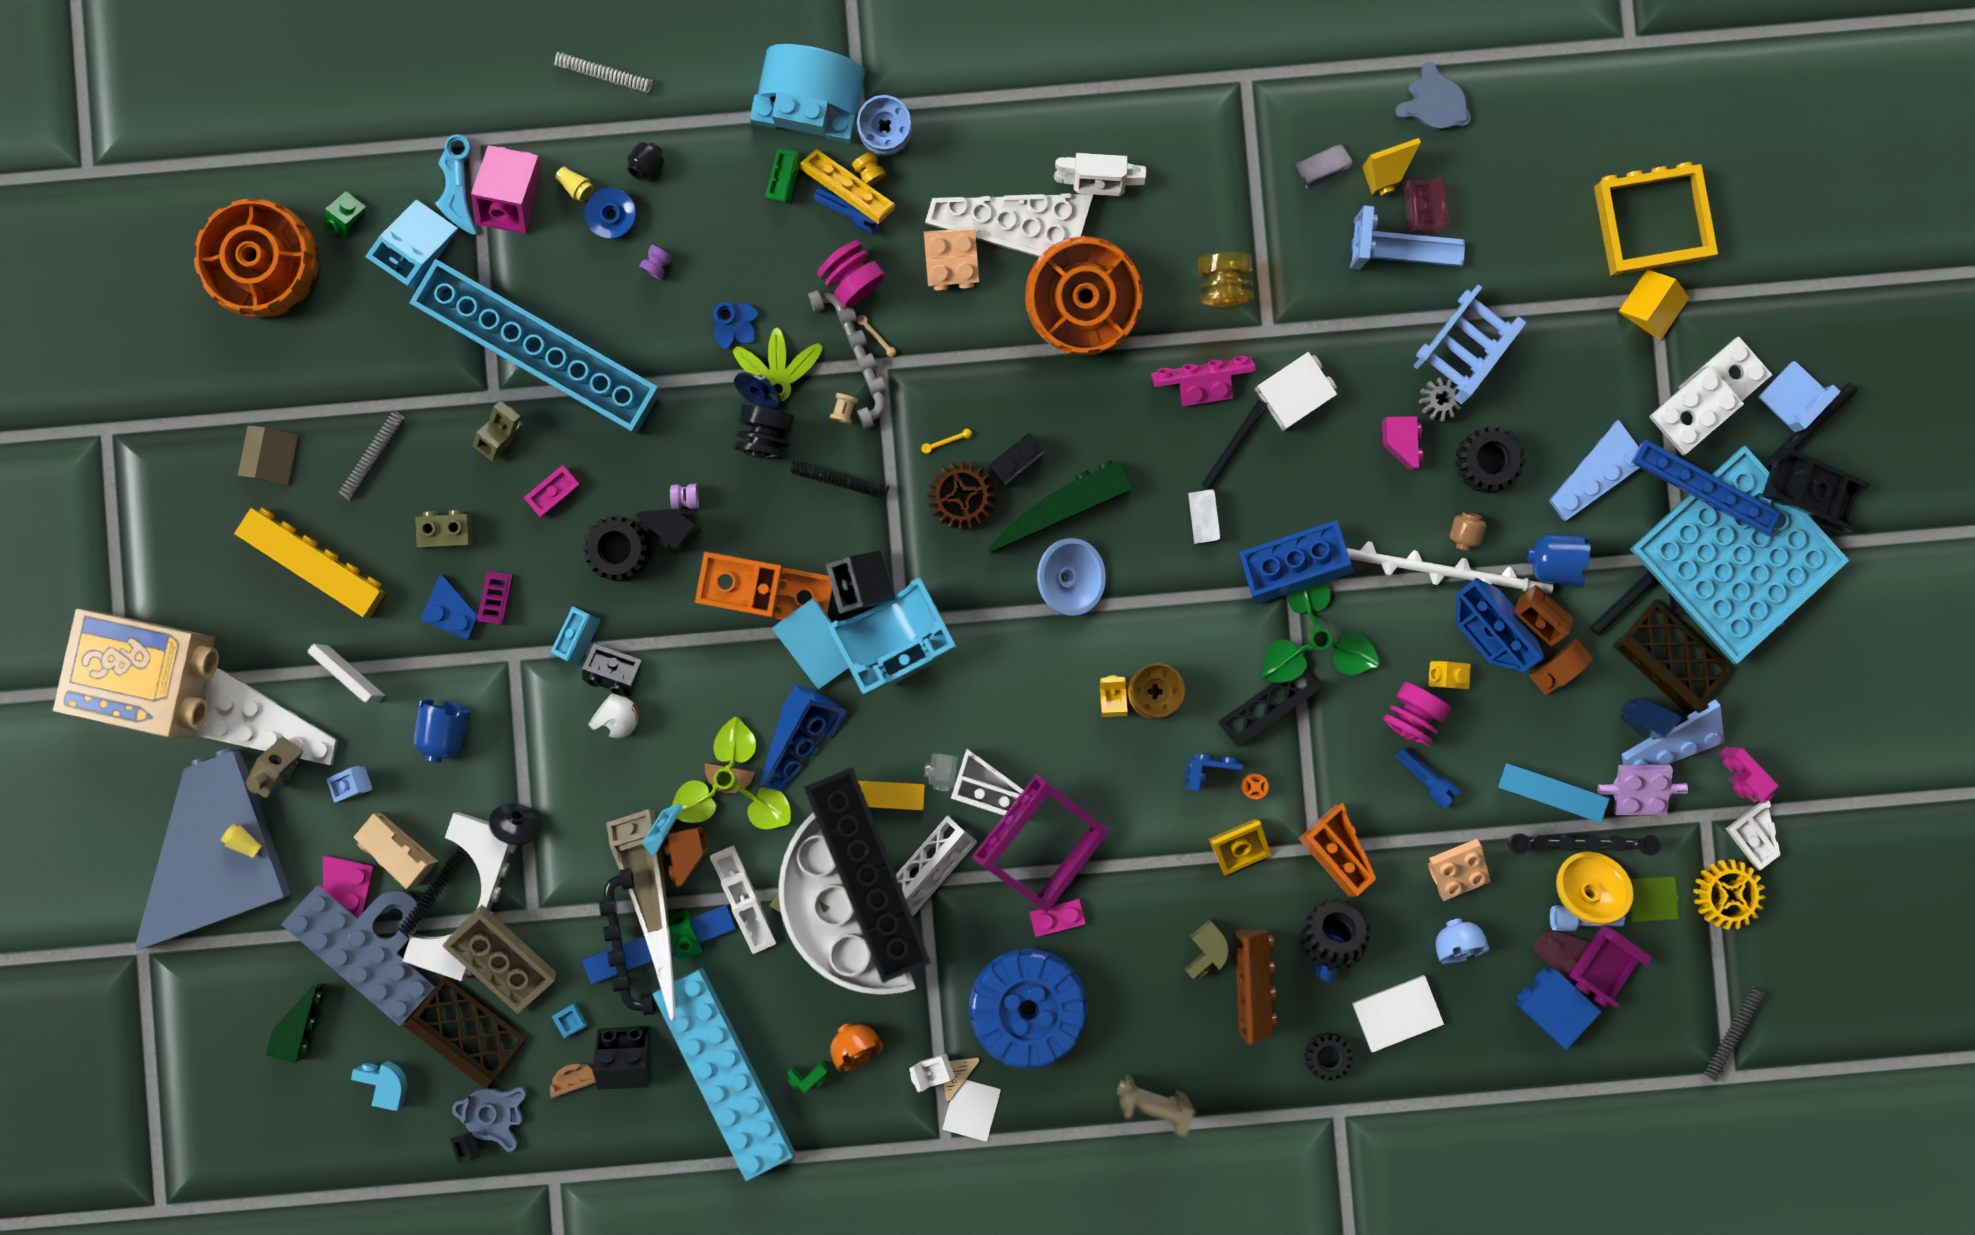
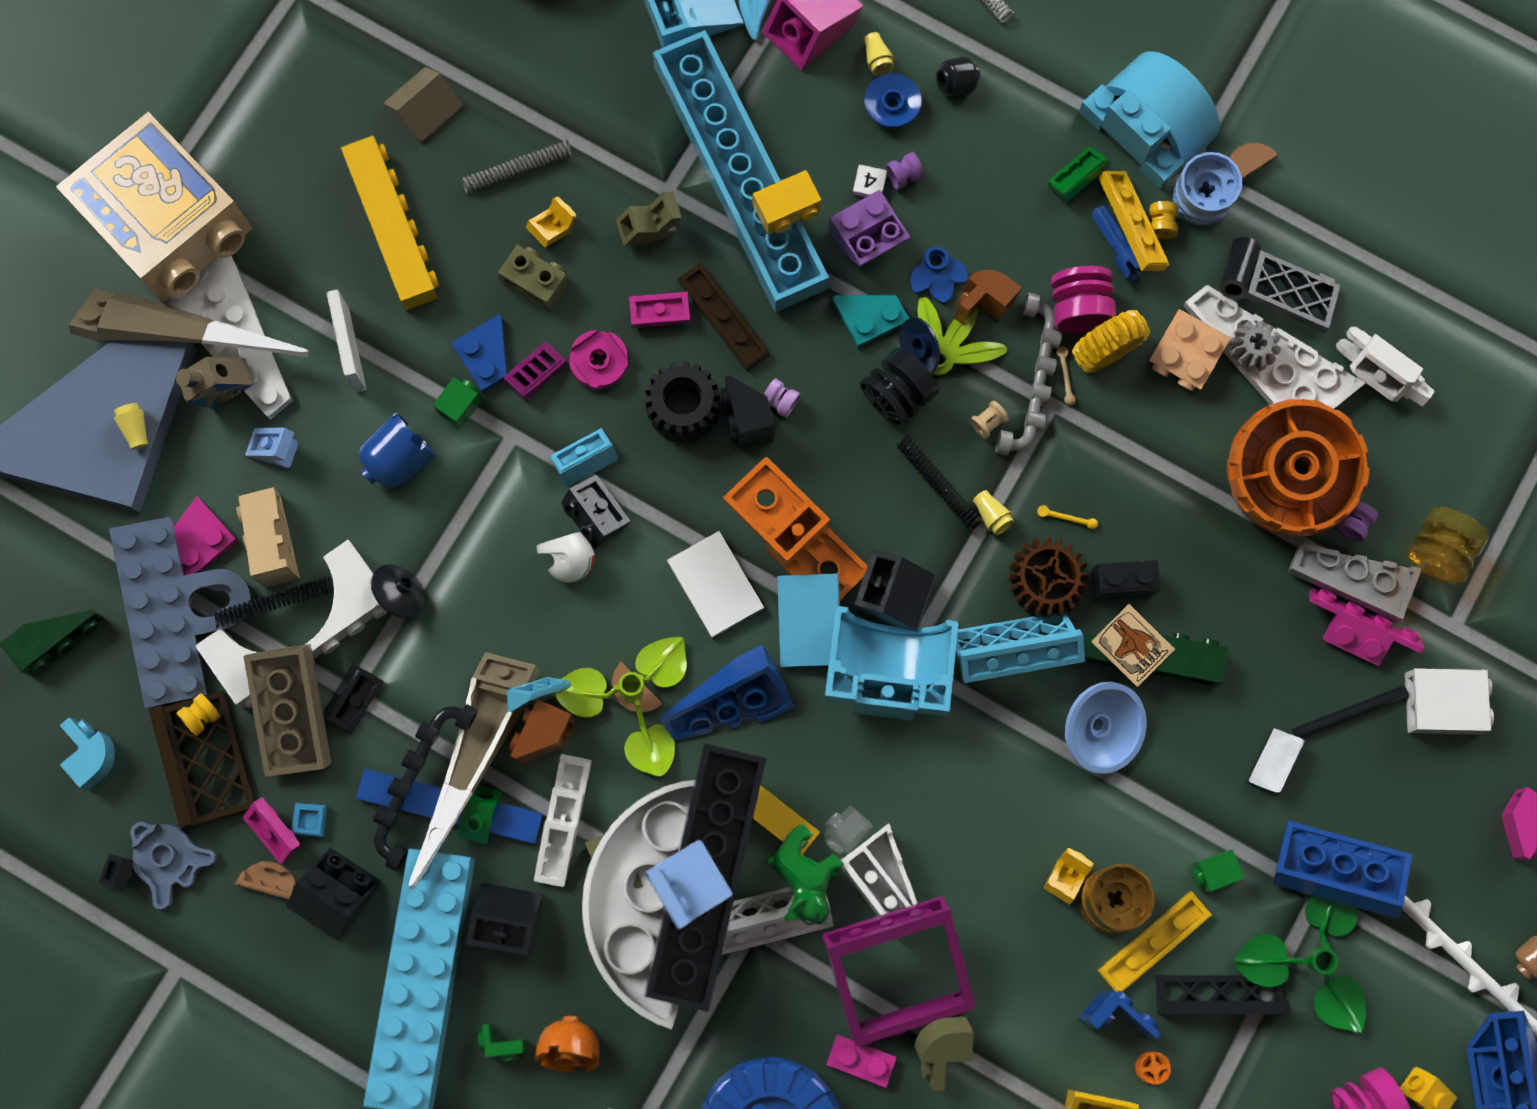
camera: 30 degrees right, 10 degrees down
(182, 762) = (131, 317): none -> dark tan plate
(428, 481) = (552, 223): none -> yellow bracket
(440, 1005) = (198, 714): none -> yellow wheel
(457, 660) = (457, 402): none -> green brick
(537, 918) = (352, 698): none -> black slope
(542, 571) = (597, 376): none -> dark pink plate
(549, 1046) = (271, 830): none -> dark pink plate
(589, 353) = (787, 203): none -> yellow brick
(601, 463) = (723, 317): none -> dark brown tile
(636, 287) = (868, 181): none -> white tile
(660, 327) = (867, 229): none -> medium lavender slope
(706, 389) = (869, 316): none -> teal wing
(732, 662) = (715, 584): none -> white tile
(752, 994) = (504, 919): none -> black slope
(778, 312) = (989, 291): none -> dark orange brick
(858, 890) = (688, 884): none -> light blue bracket
(891, 291) = (1111, 341): none -> yellow gear
(893, 475) = (994, 514): none -> light yellow cone
(900, 77) = (1252, 157): none -> medium nougat tile
(934, 825) = (804, 877): none -> green animal
(951, 165) = (1242, 277): none -> black piece
(983, 563) = (1027, 654): none -> medium azure fence
(1000, 216) = (1263, 341): none -> light grey gear
(1052, 505) = (1133, 645): none -> sticker
(1102, 870) = (941, 1043): none -> olive brick
(1152, 302) = (1358, 522): none -> medium lavender wheel
(1188, 342) = (1369, 583): none -> light grey wing
(1202, 700) = (1154, 942): none -> yellow tile
(1212, 623) = (1217, 871): none -> green brick

